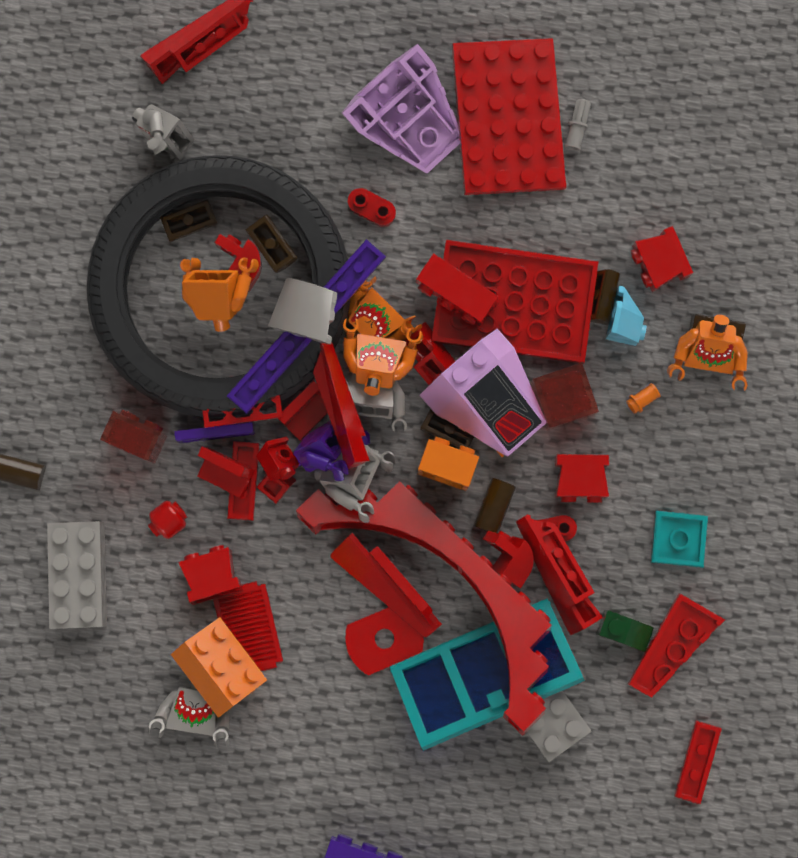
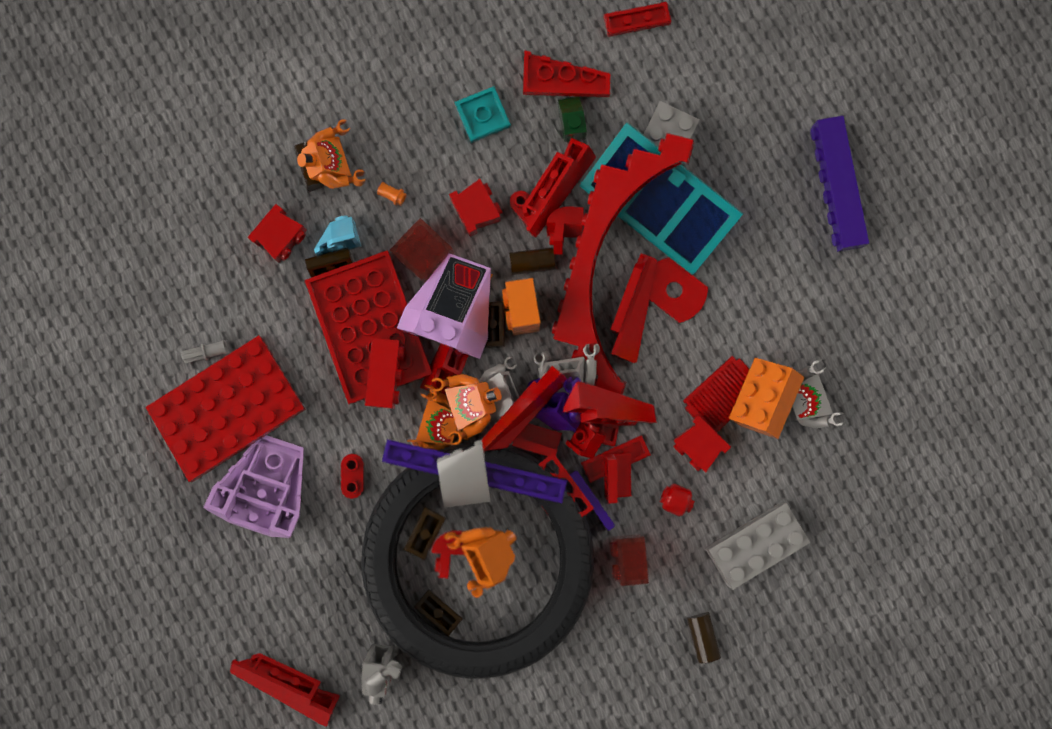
camera: 120 degrees left, 0 degrees up
(297, 497) = (607, 407): none -> red wedge

